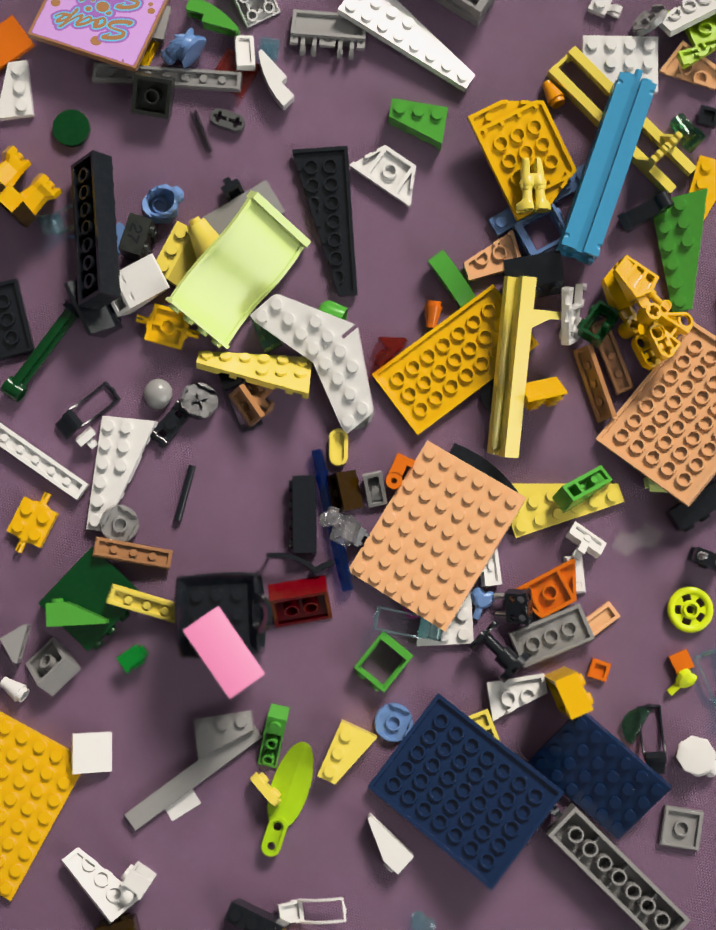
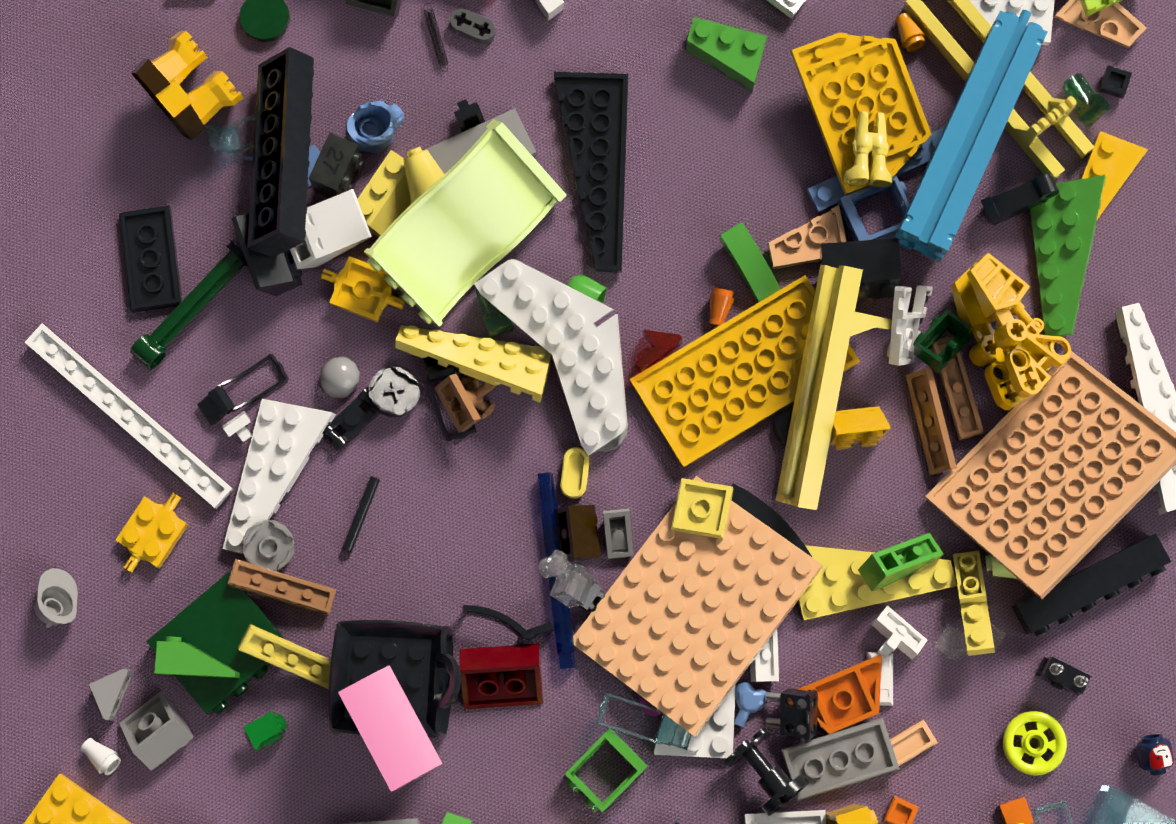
camera: 10 degrees right, 5 degrees down
(304, 514) = (519, 558): black brick -> none
(388, 172) = (679, 114): white wing -> none
(394, 477) = (646, 521): orange leg -> none
(434, 464) = (702, 508): none -> light yellow tile
(637, 513) = (973, 603): none -> light yellow slope

